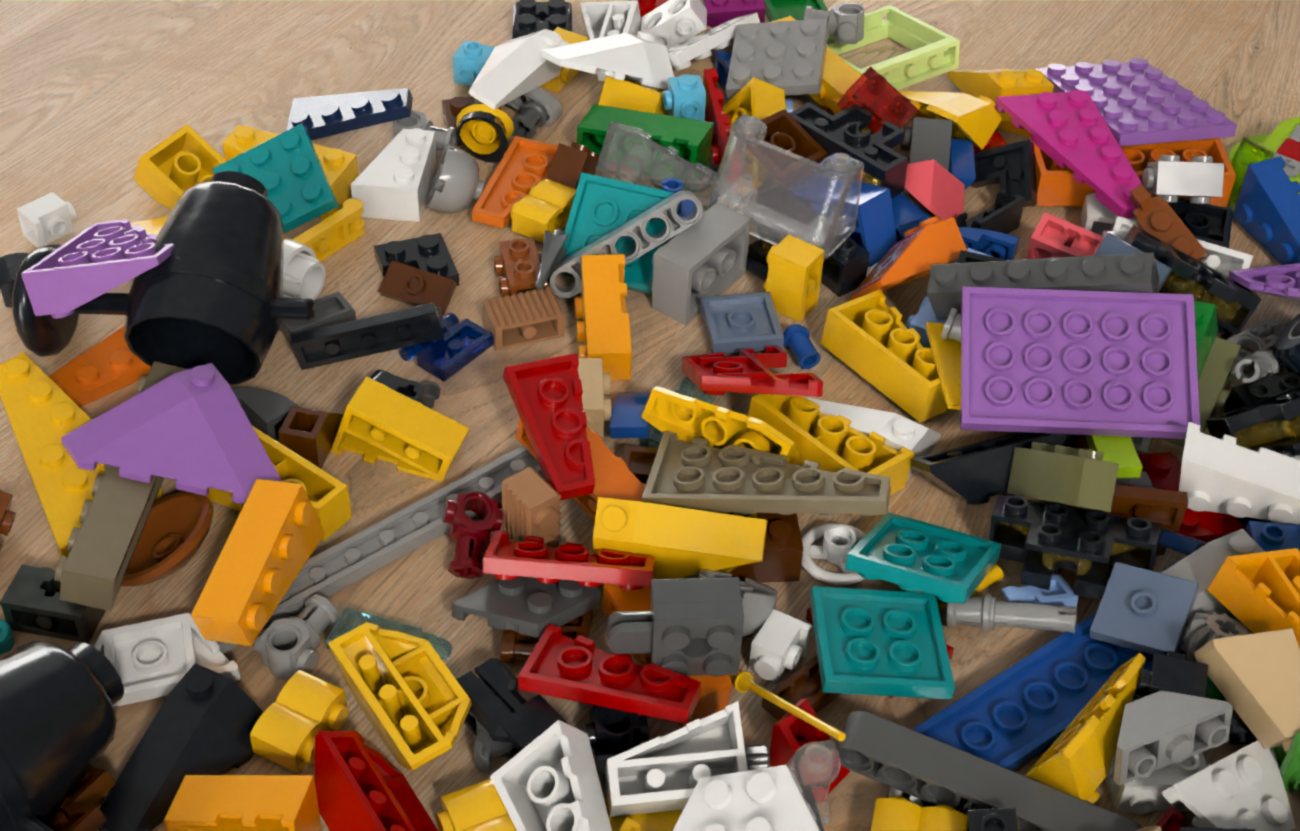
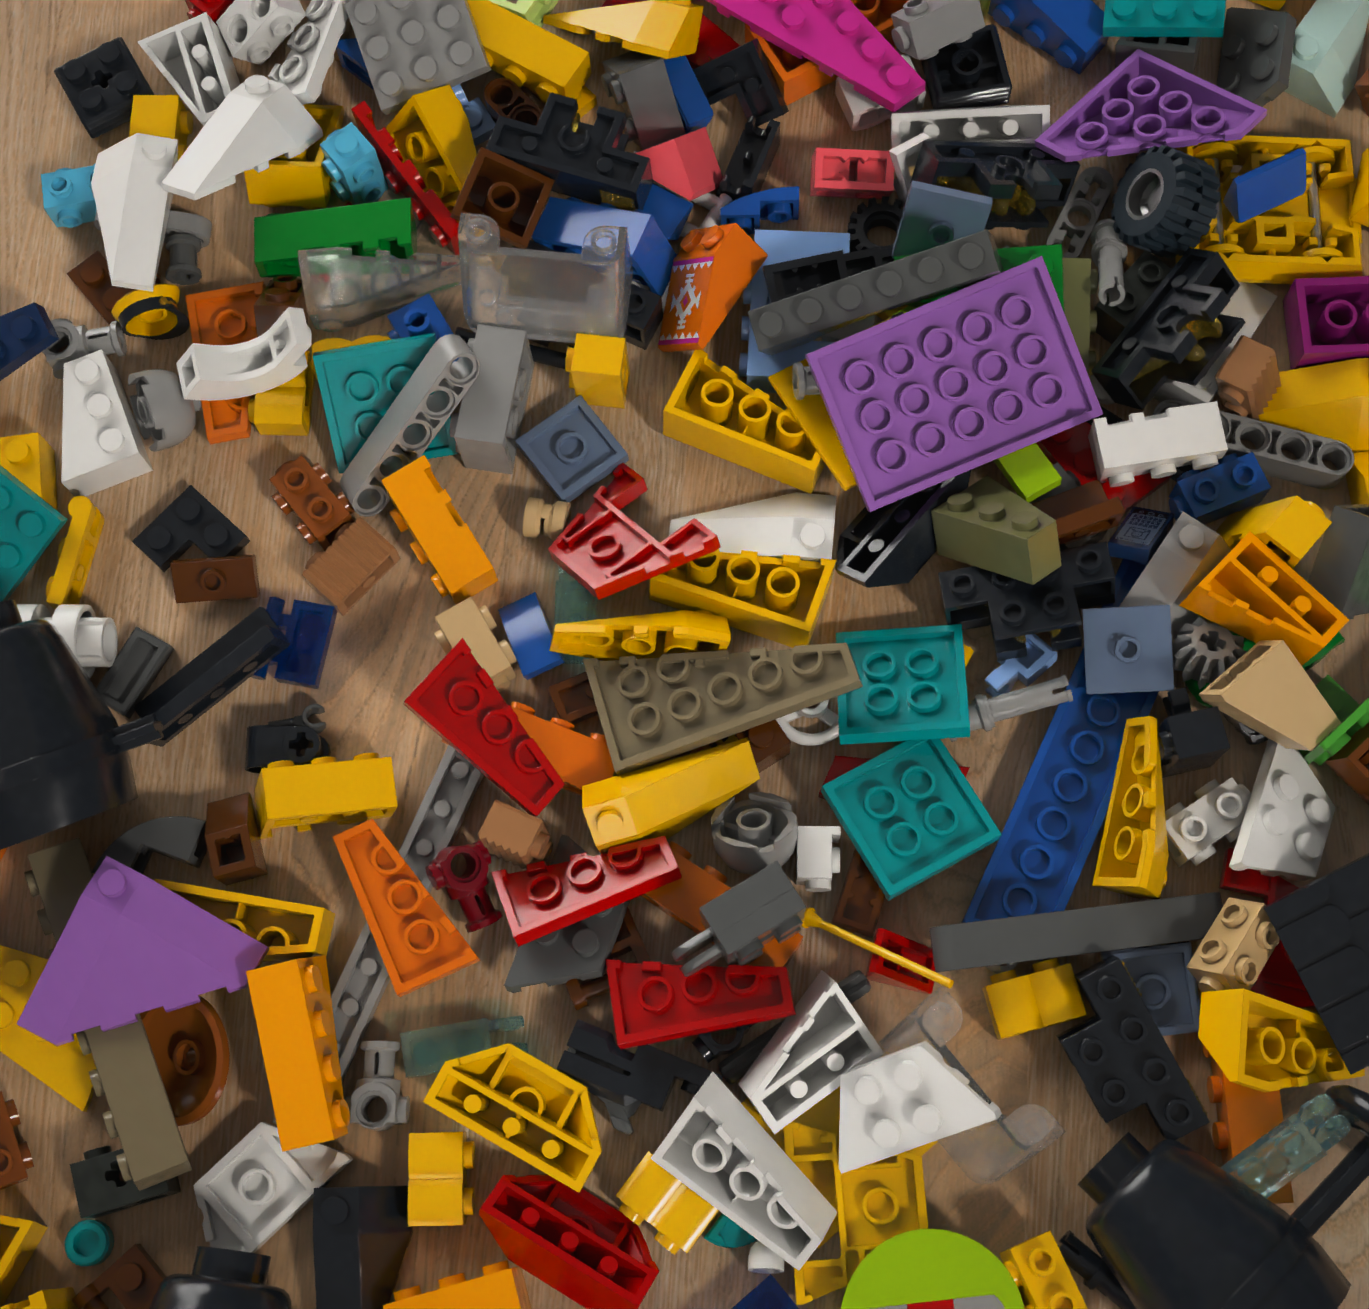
camera: 20 degrees left, 30 degrees up
(403, 529) = (404, 918): none -> orange wing
(528, 173) = (247, 367): none -> white arch
(552, 254) = (334, 464): dark grey piece -> none
(689, 344) = (545, 518): none -> tan wheel
(797, 340) = (647, 450): blue pin -> none
(881, 99) = (572, 73): clear red brick -> none
(1161, 221) = (949, 112): dark orange hinge -> none
(1167, 731) = (1205, 796): light grey slope -> none

